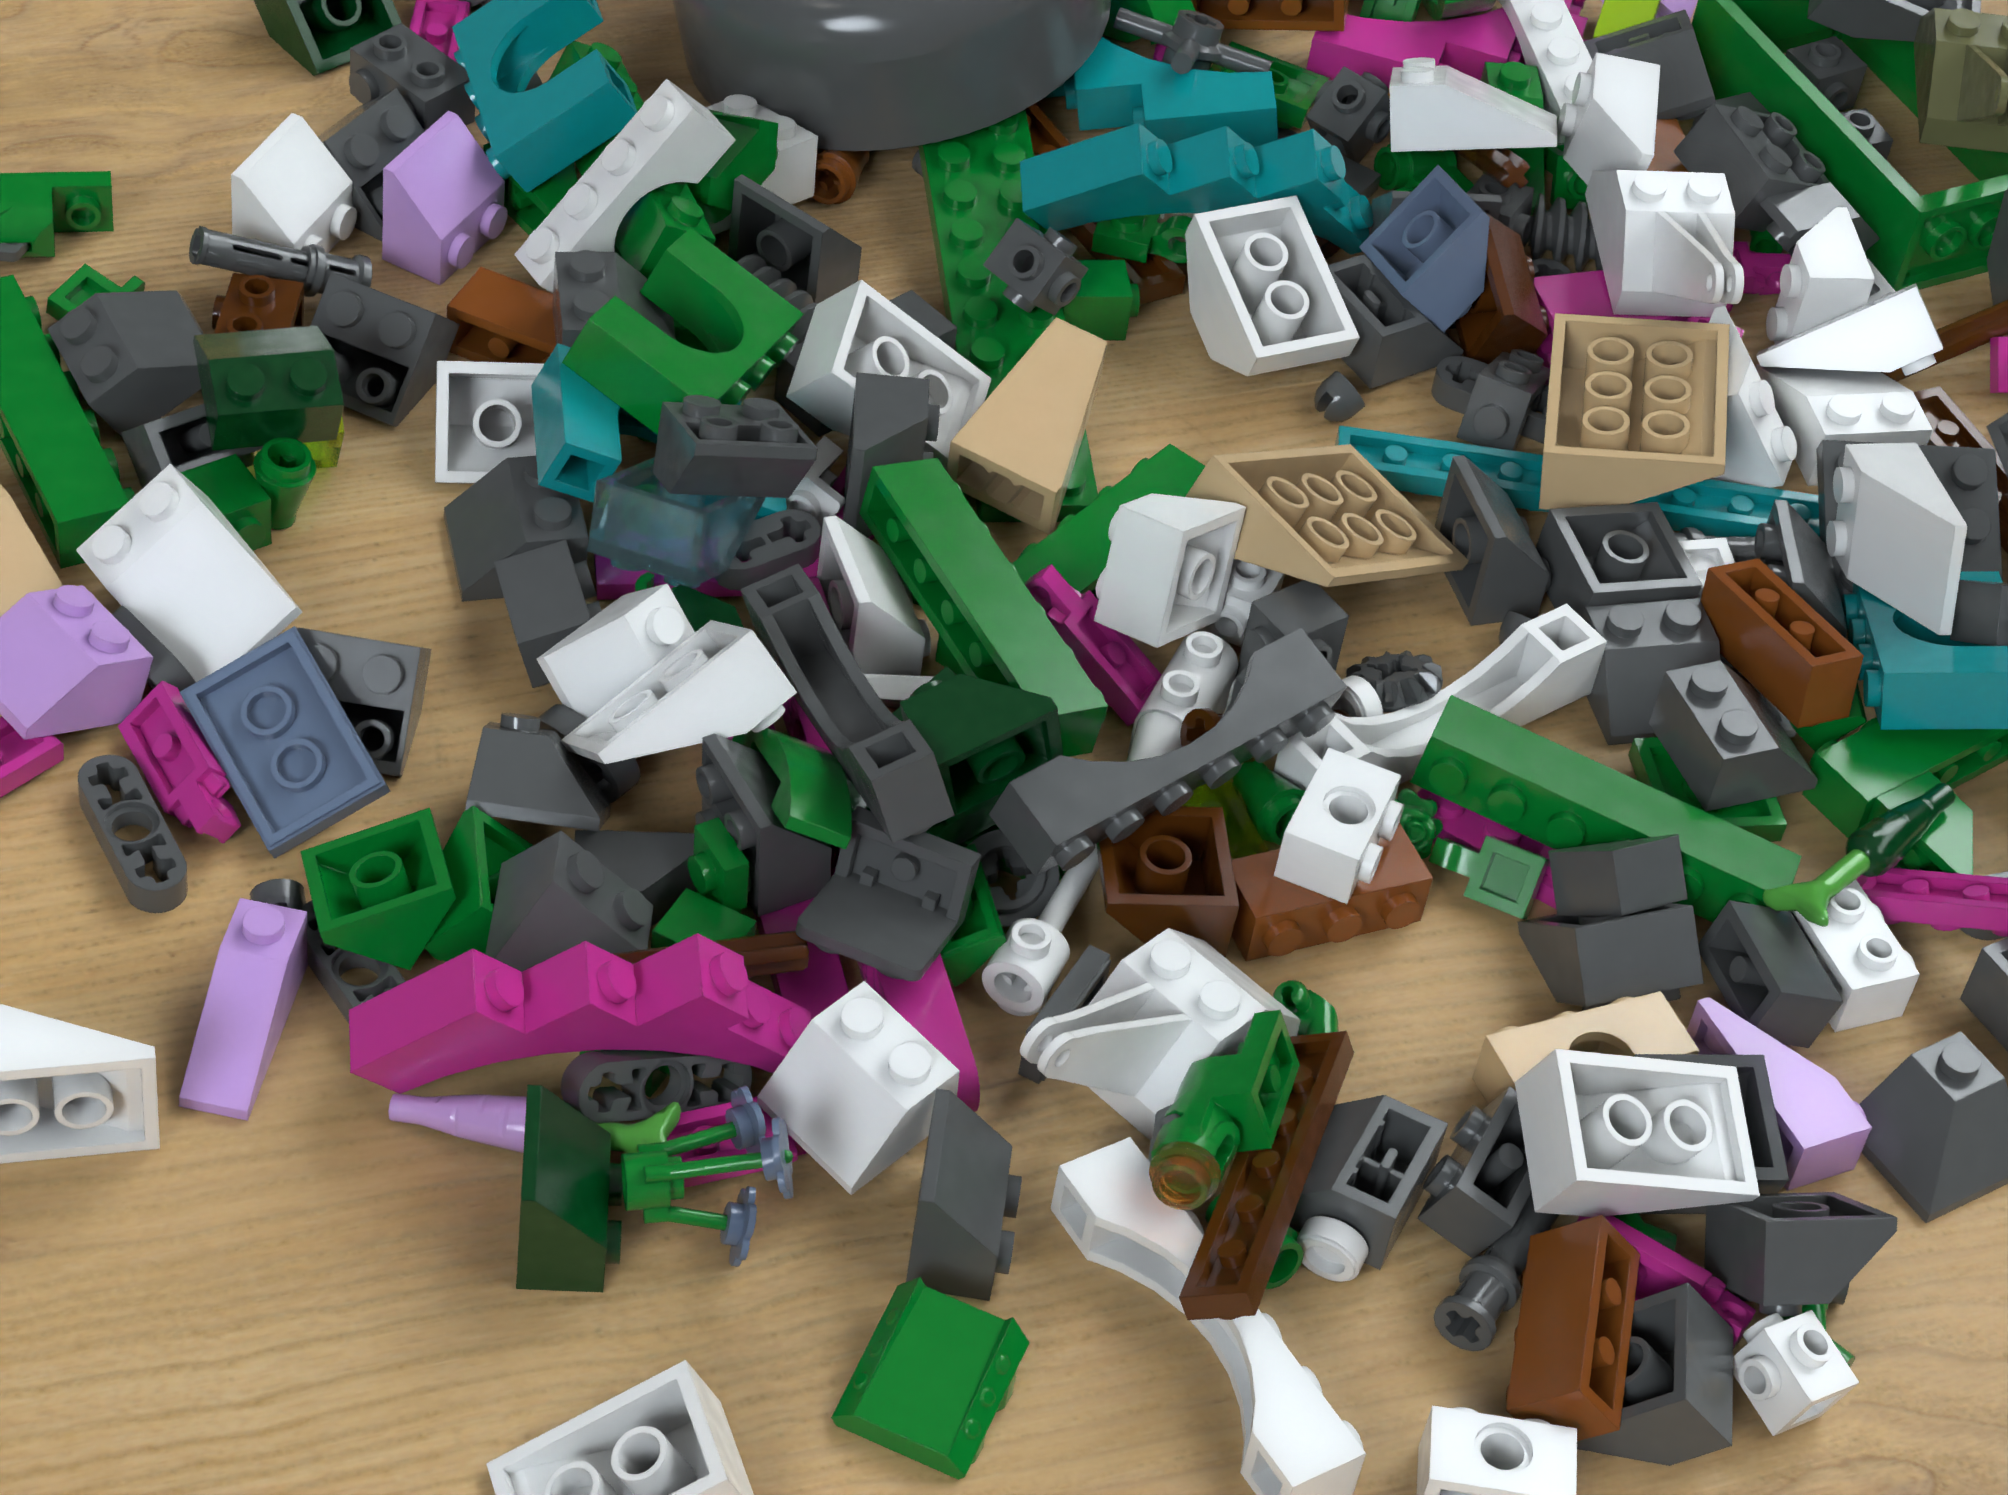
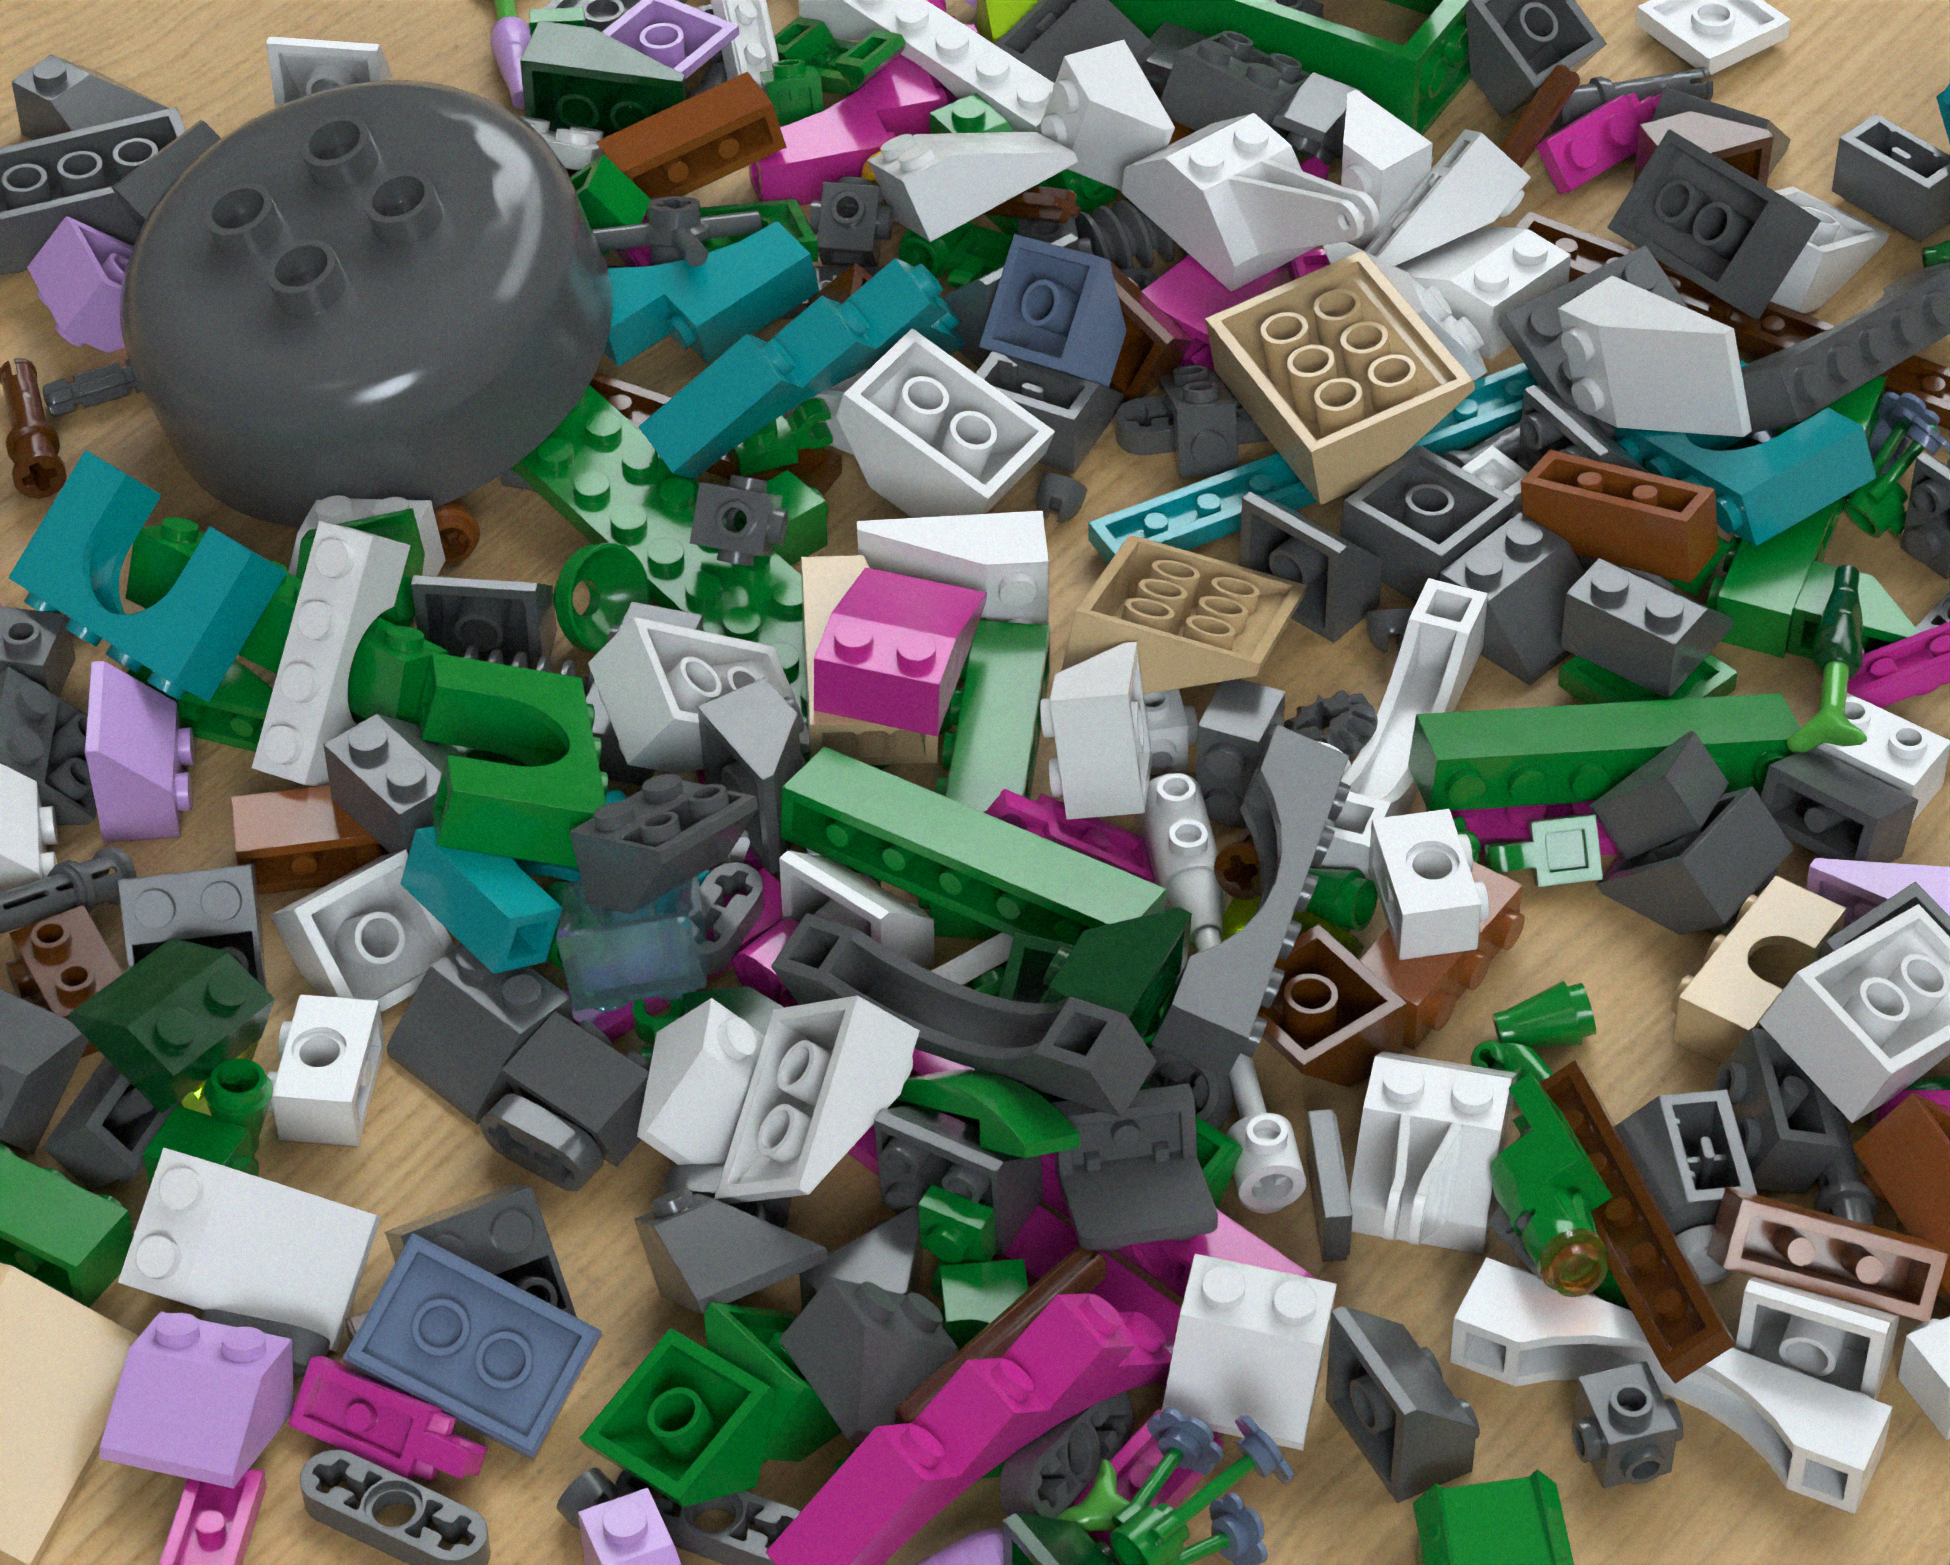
camera: 25 degrees left, 0 degrees up
(378, 497) = (327, 1070): none -> white brick
(486, 635) = (541, 1142): none -> dark grey beam
(918, 260) = (613, 580): none -> green piece
(1061, 418) = (895, 650): none -> dark pink slope
(1130, 1334) = (1625, 1425): none -> dark grey brick
(1183, 394) = (976, 552): none -> white slope
(1359, 1362) = (1817, 1335): none -> white slope
(1371, 996) = (1548, 1019): none -> green cone
(1413, 1299) = (1827, 1254): none -> brick

